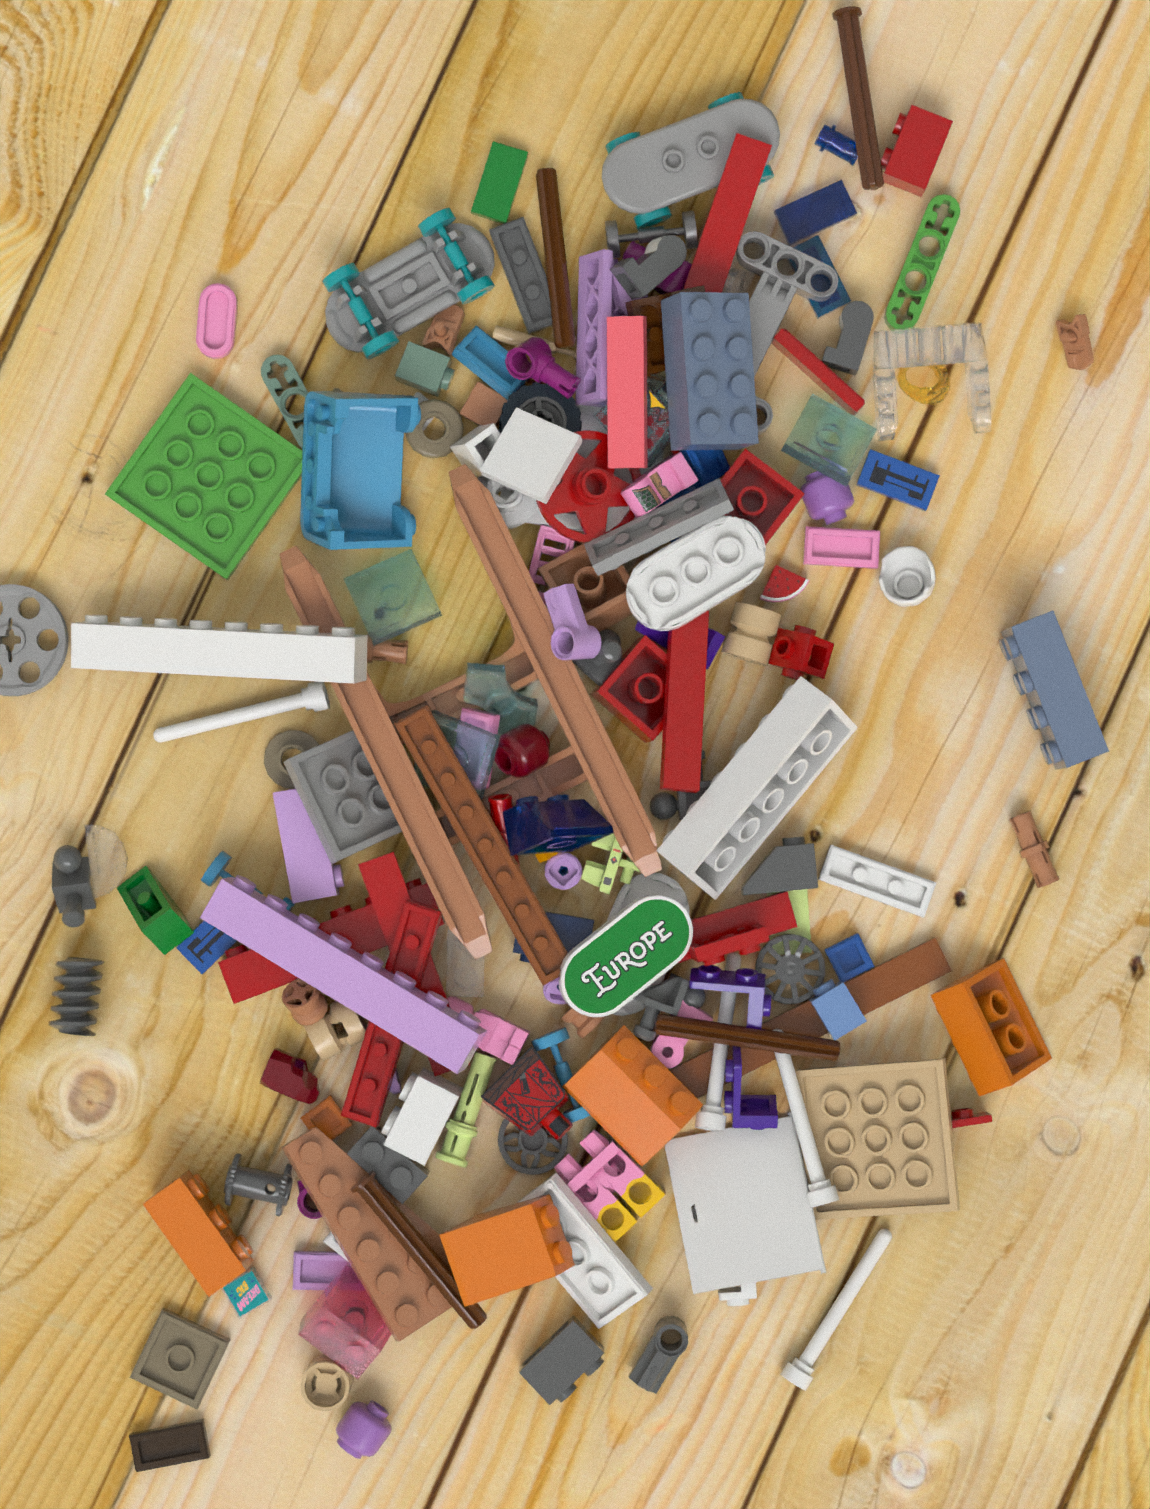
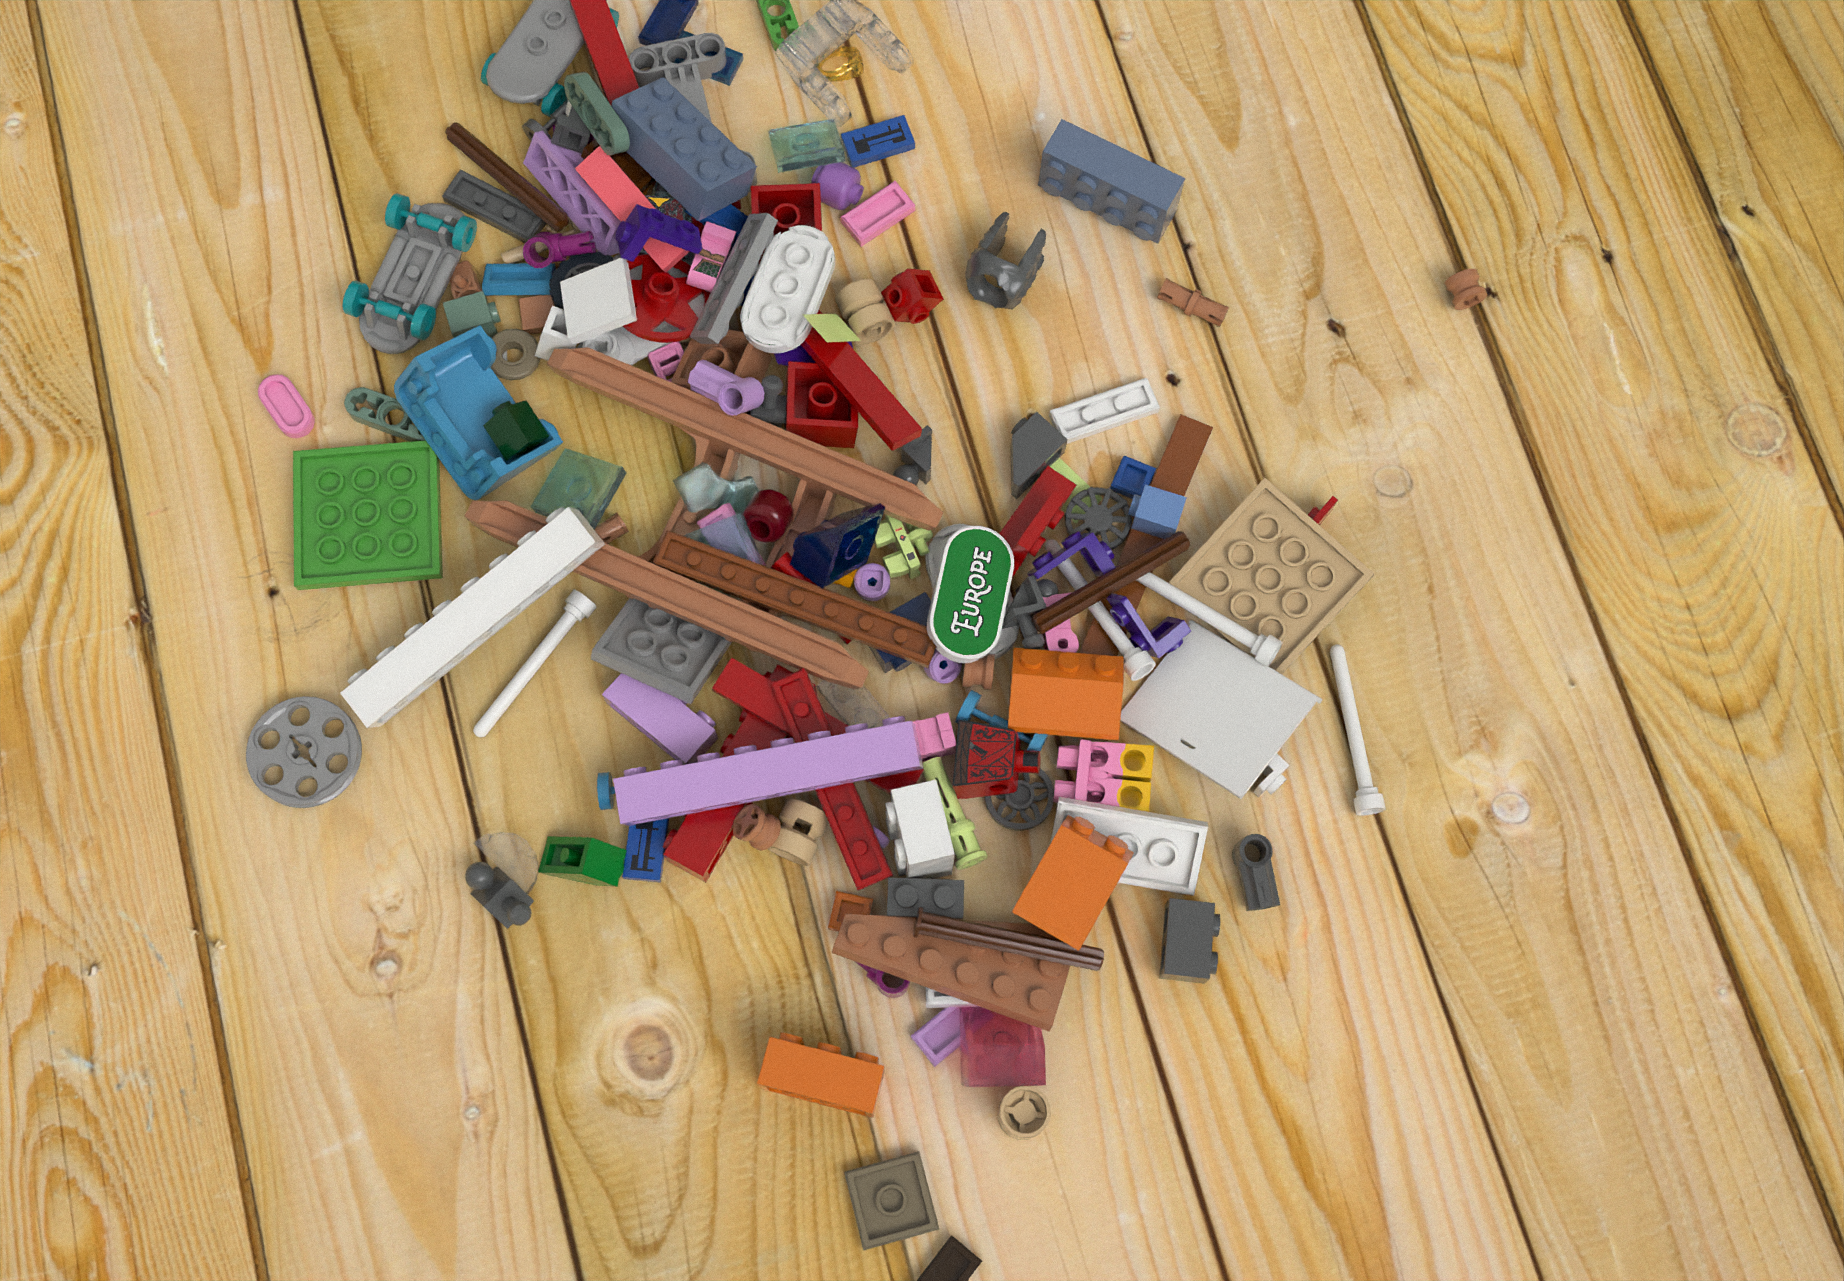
camera: 45 degrees left, 15 degrees down
(76, 996) = (570, 978): dark grey piece -> none
(246, 1293) = (900, 1101): tile -> none
(253, 1184) = (834, 1007): dark grey hose -> none
(274, 752) = (583, 677): dark tan piece -> none
(290, 1077) = (794, 901): dark red rock -> none
(363, 1429) = (1083, 1127): medium lavender head -> none
(379, 508) = (515, 429): none -> dark green brick
(499, 182) = (424, 162): green tile -> none
(628, 434) = (653, 223): none -> dark purple bracket
(662, 286) = (597, 113): none -> sand green beam
(702, 637) = (831, 327): none -> yellowish green sticker
(757, 787) = (962, 405): white brick -> none
(783, 585) = (859, 265): red tile -> none
(818, 372) = (759, 111): red tile -> none
(855, 329) = (760, 66): dark grey leg -> none
(873, 692) = (1012, 278): none -> dark grey piece
(907, 576) = (940, 190): white hair -> none
(991, 1027) = (1275, 443): orange slope -> none

